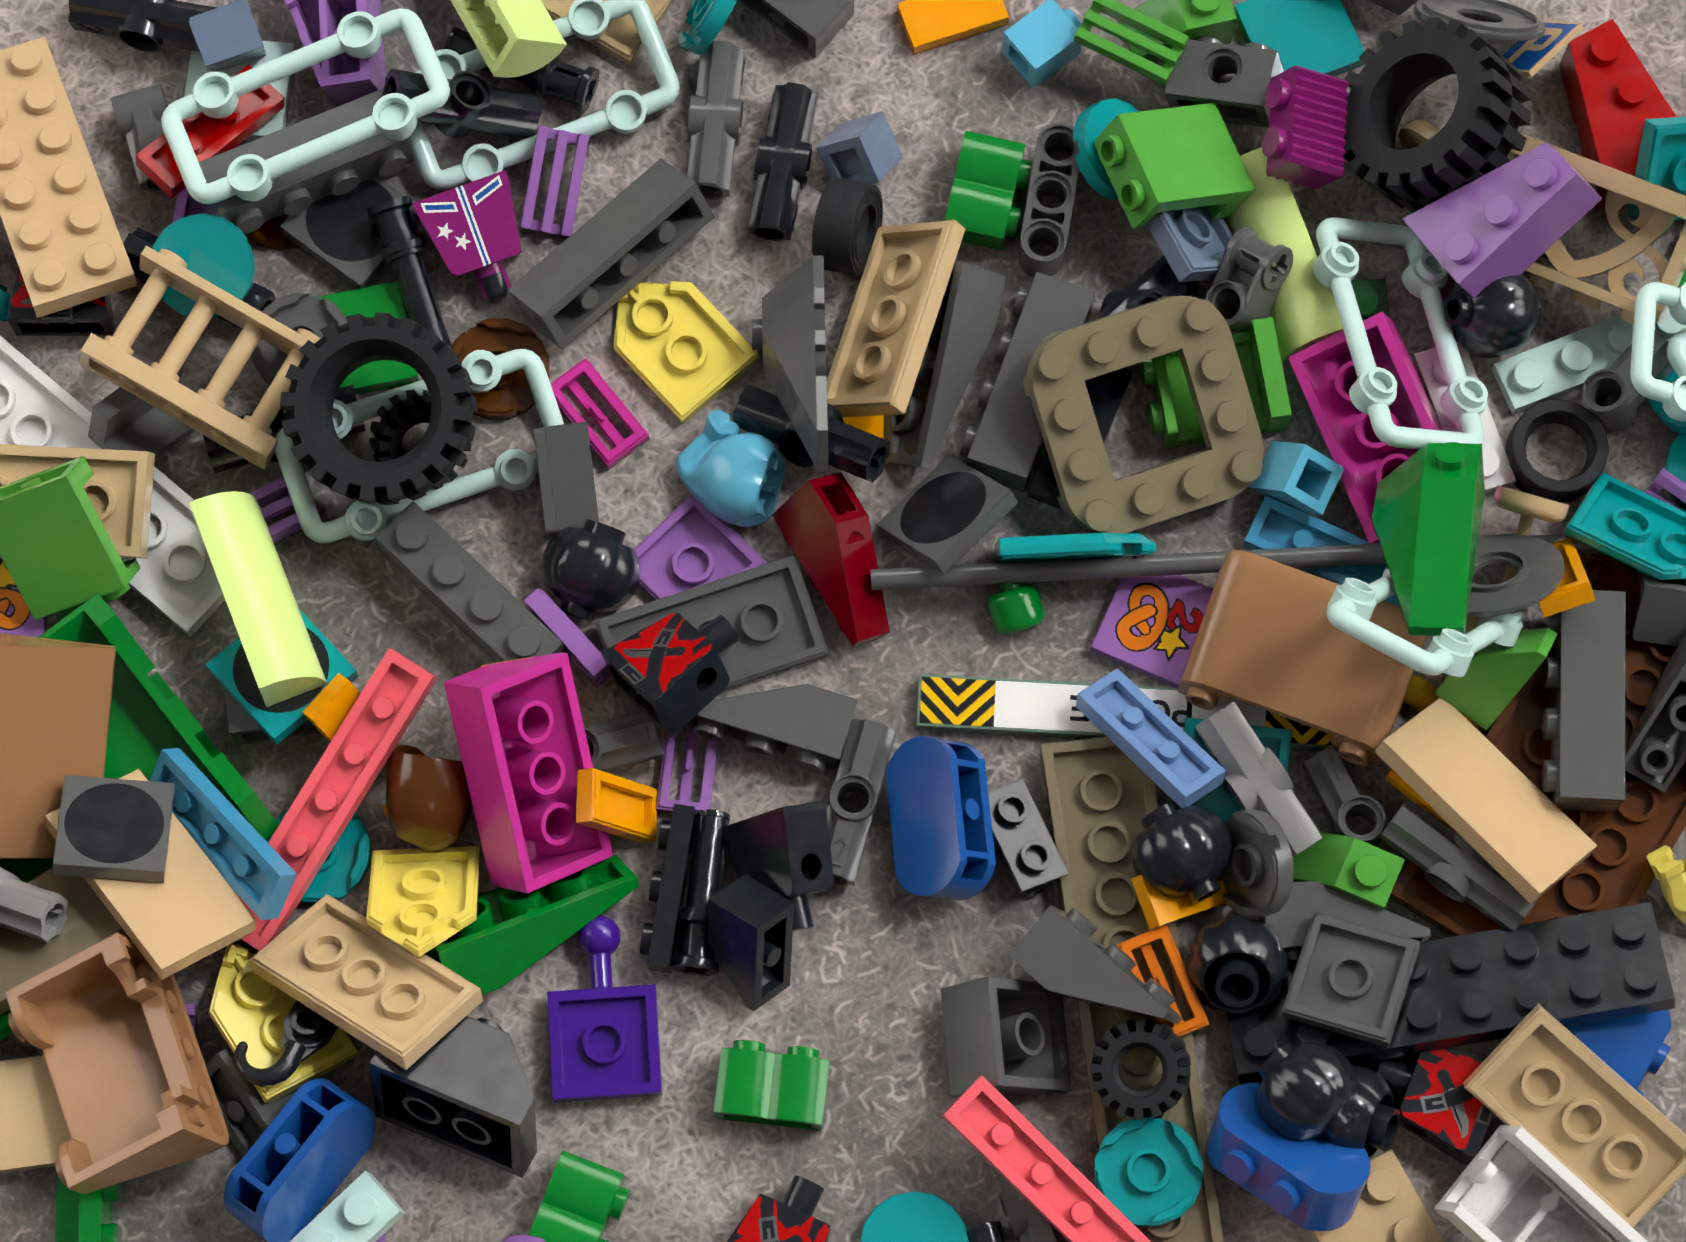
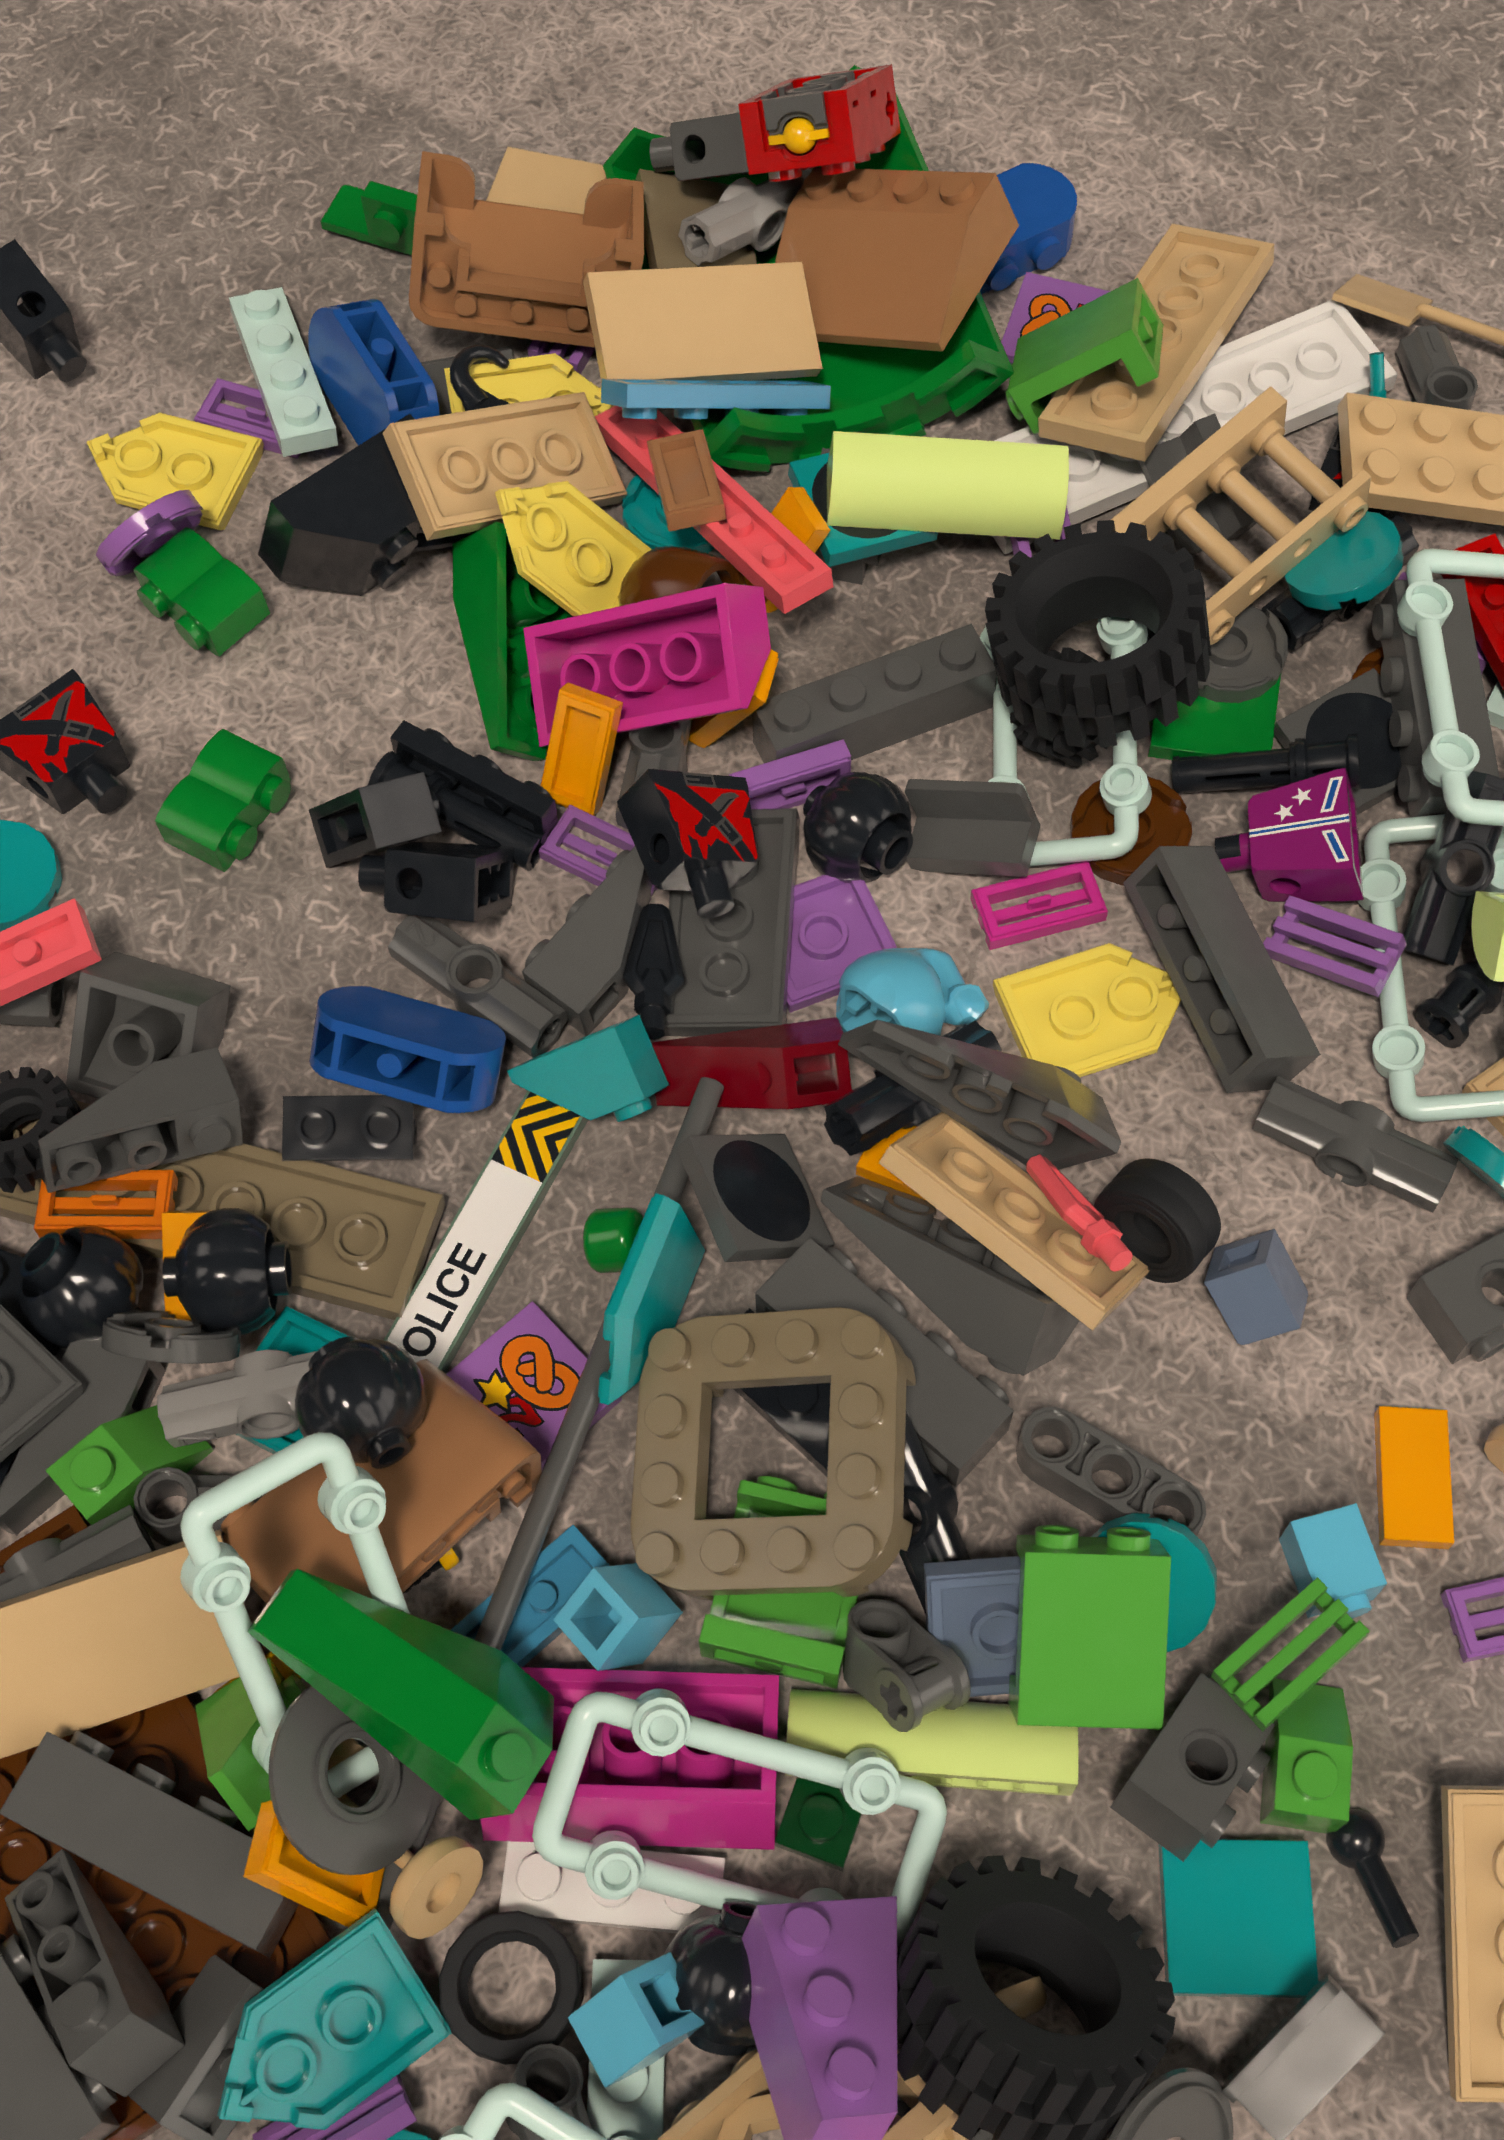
camera: 115 degrees right, 10 degrees down
(113, 829) = (758, 303): tile -> none
(325, 819) = (686, 480): none -> medium nougat tile
(604, 1035) = (362, 677): dark purple plate -> none
(783, 162) = (1277, 1196): black piece -> none
(788, 667) = (654, 968): none -> black piece
(869, 277) = (1099, 1235): none -> coral piece
(896, 674) = (598, 1073): none -> teal slope
(985, 189) = (1153, 1406): green brick -> none
(1150, 738) = (376, 1294): medium blue plate -> none
(1253, 679) = (365, 1395): none -> black plant
(1306, 127) = (1079, 1823): magenta brick -> none
(1550, 347) = (634, 2021): none -> medium azure brick

